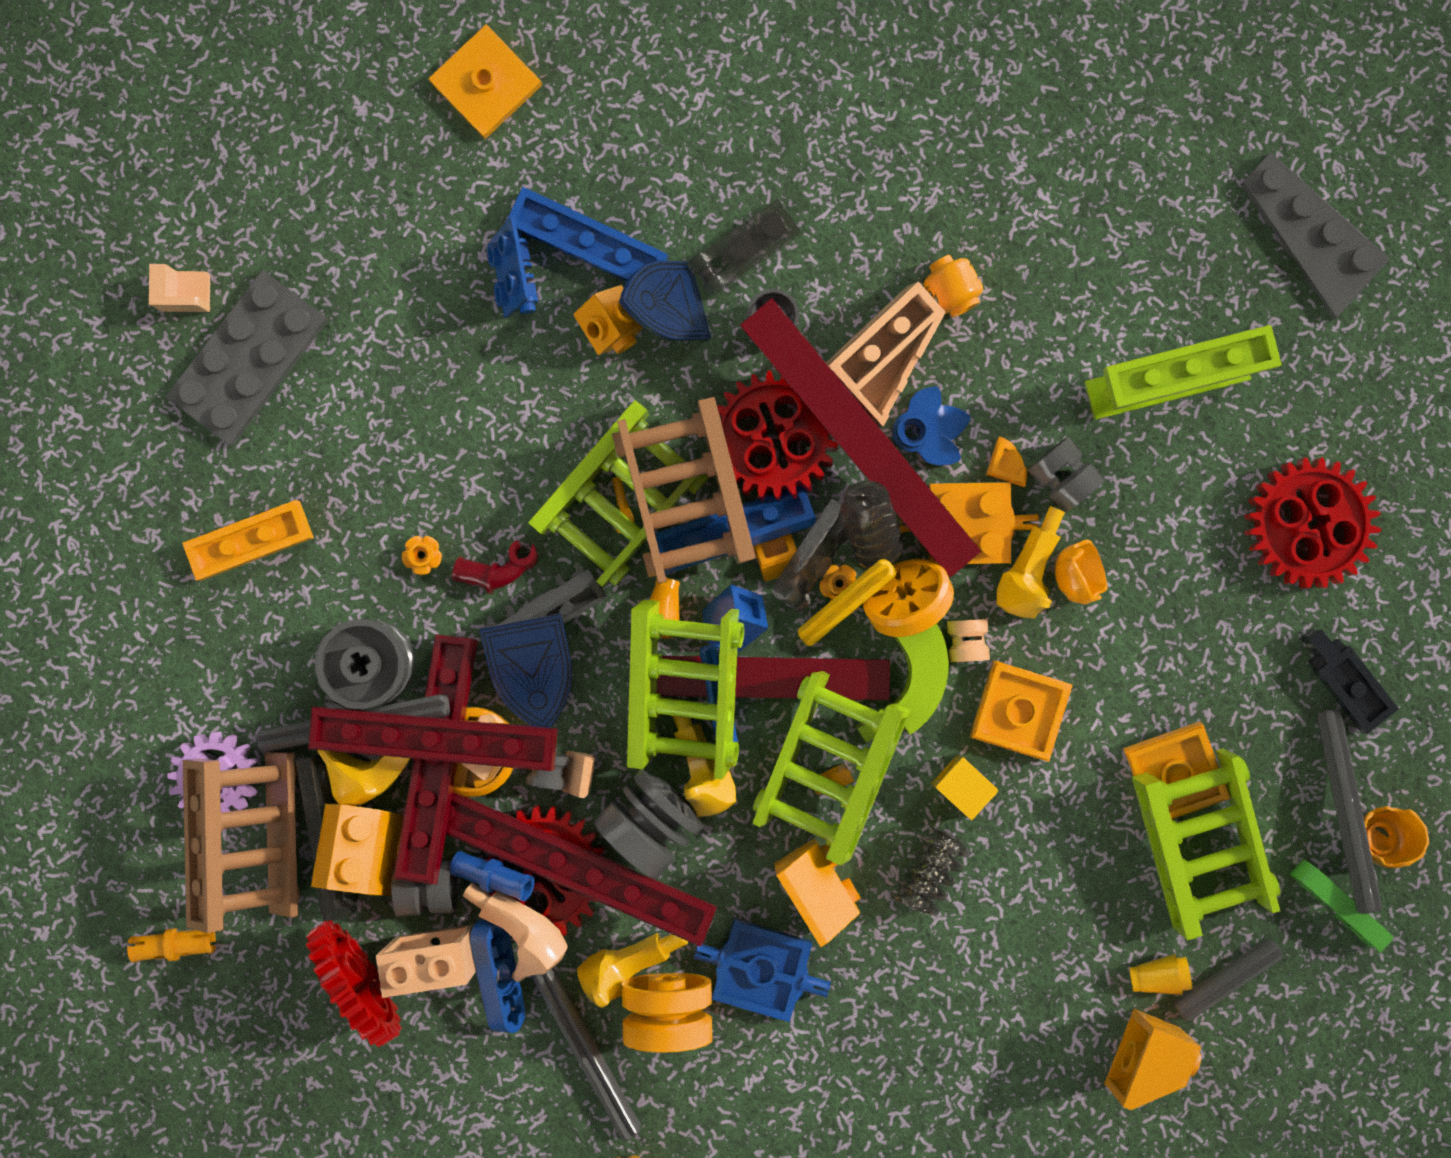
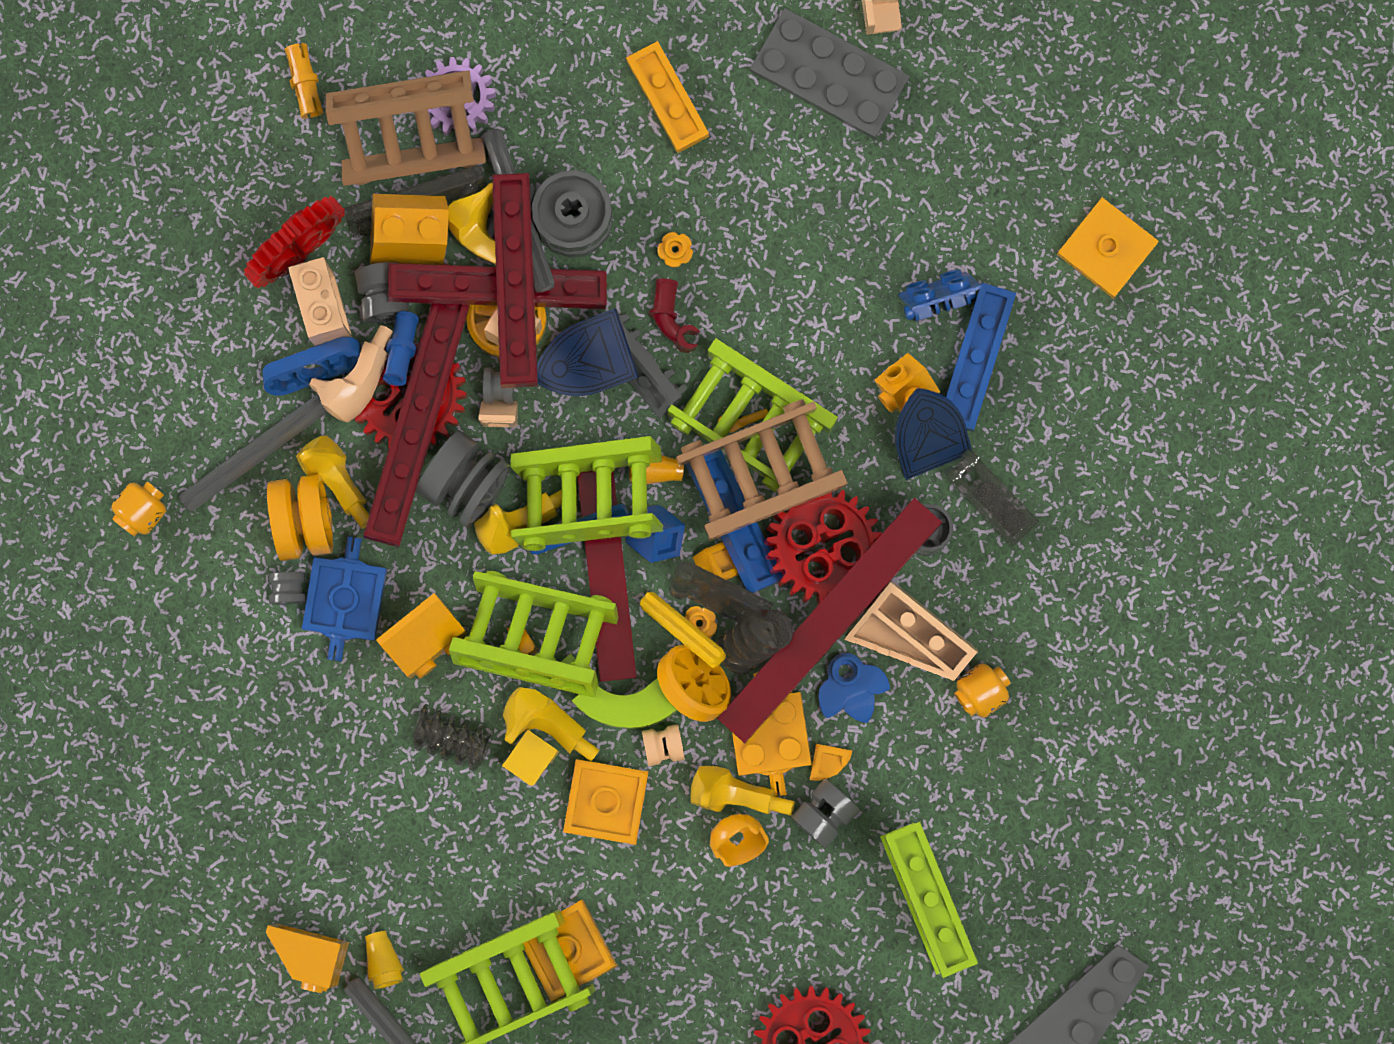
camera: 80 degrees right, 5 degrees down
(742, 1032) = (286, 588): none -> dark grey wheel
(911, 779) = (533, 710): none -> yellow animal

